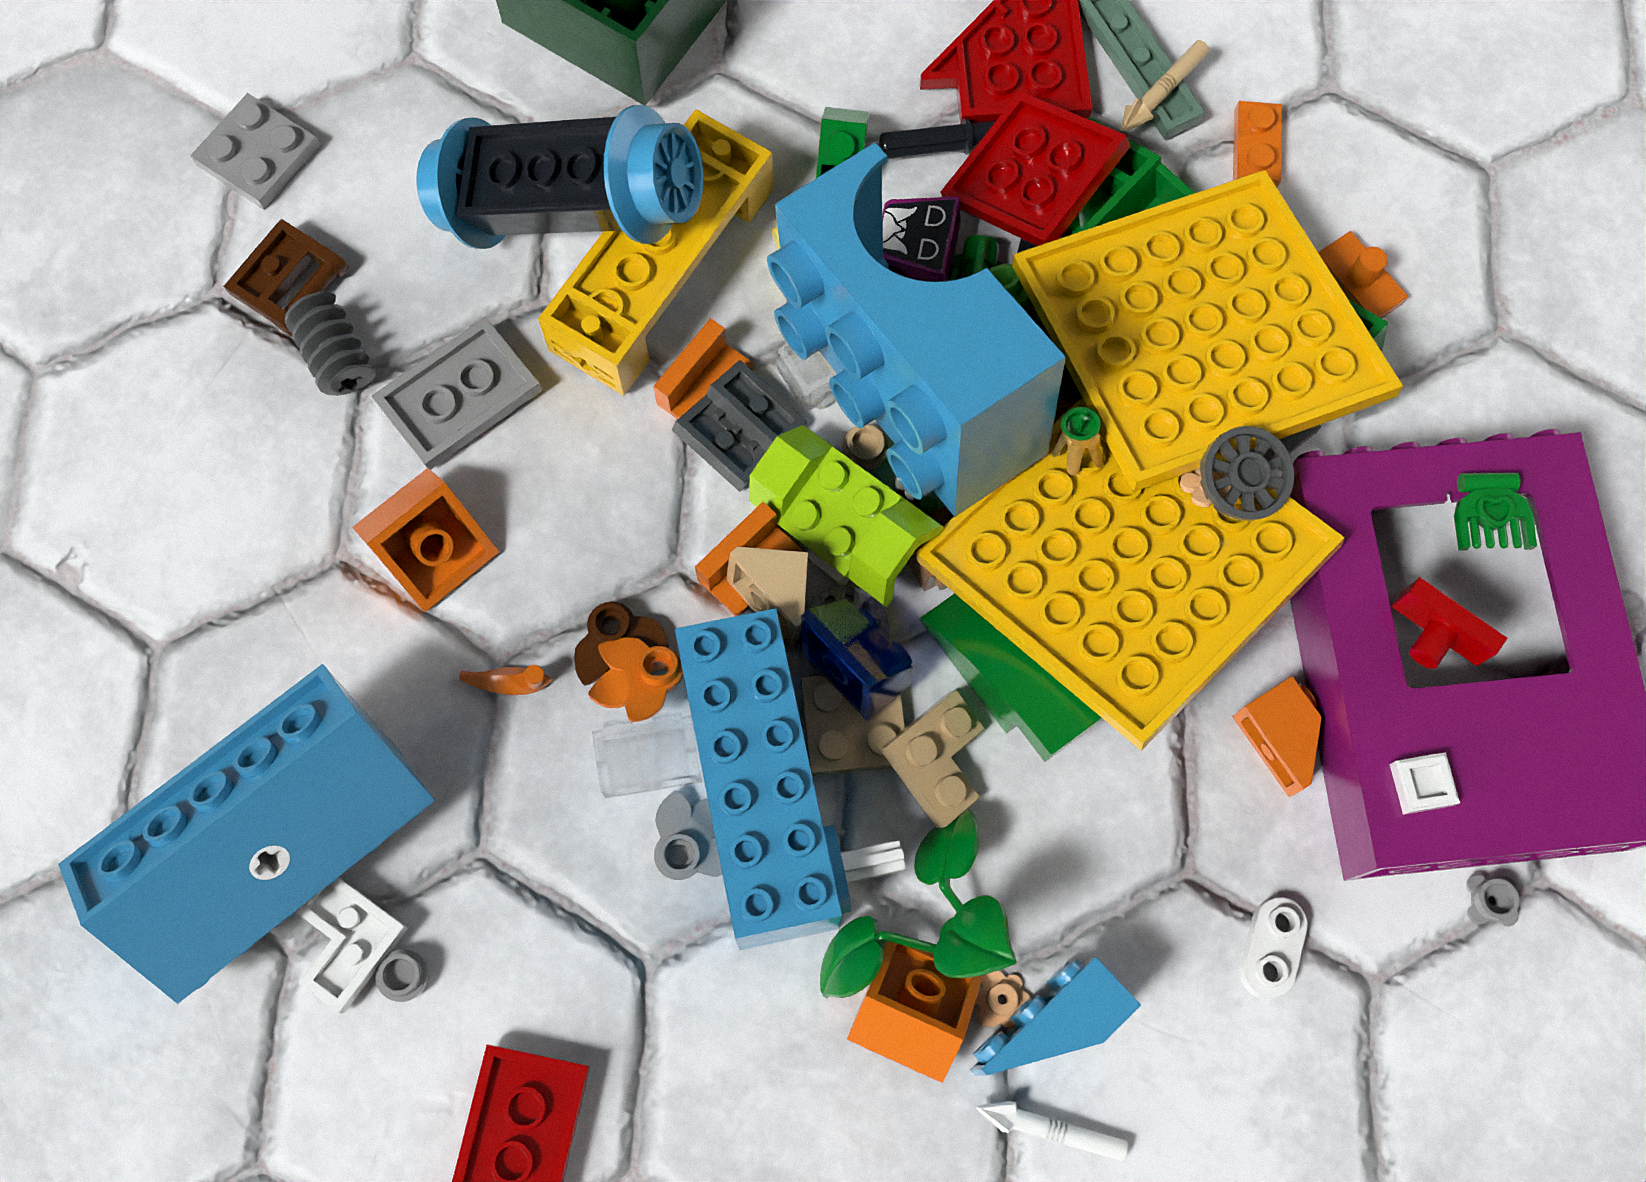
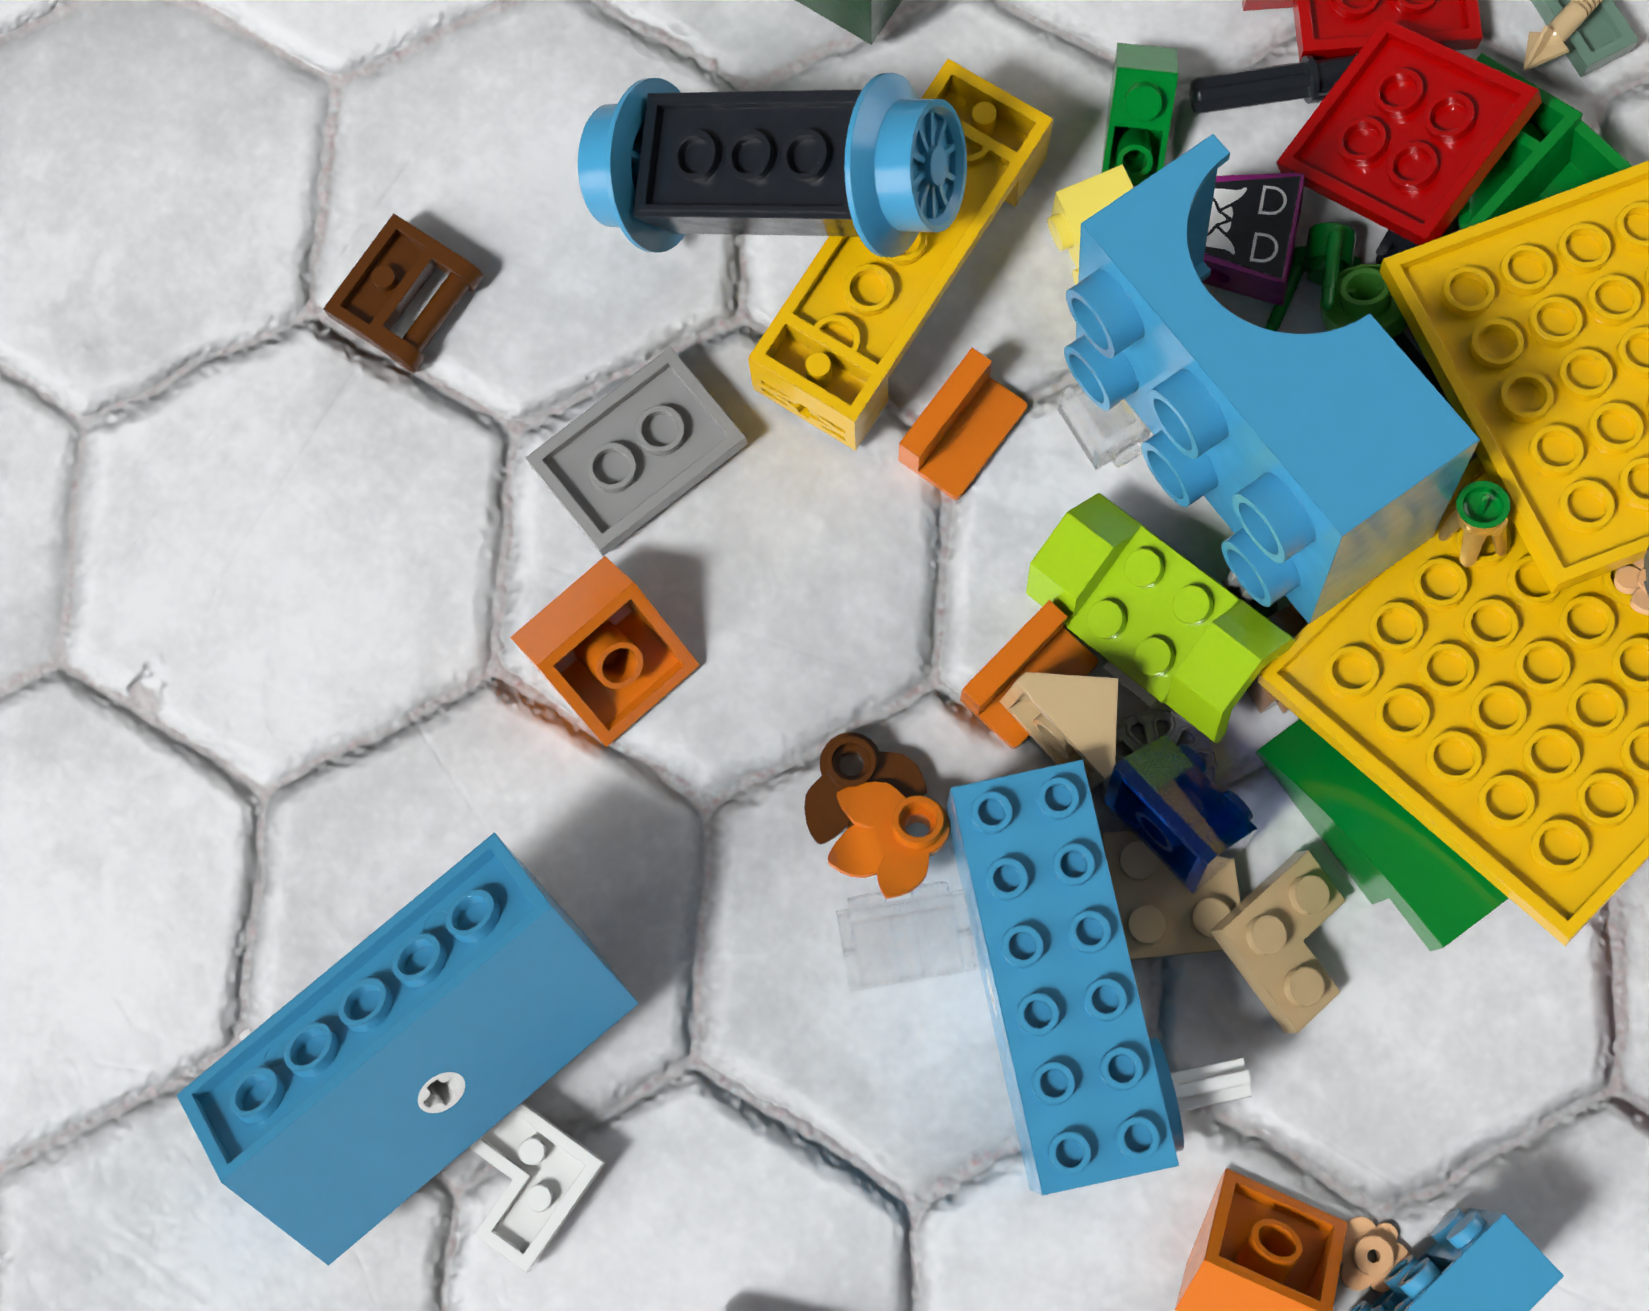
camera: 10 degrees right, 5 degrees up
(255, 151) = (351, 115): light grey plate -> none
(329, 345) = (462, 391): dark grey piece -> none
(402, 975) = (601, 1223): light grey plate -> none
(508, 680) = (718, 837): orange bar -> none
(690, 828) = (964, 1032): light grey plate -> none
(736, 423) = (1010, 490): dark grey slope -> none
(865, 446) = (1177, 524): tan plate -> none
(968, 943) = (1340, 1193): green plant -> none

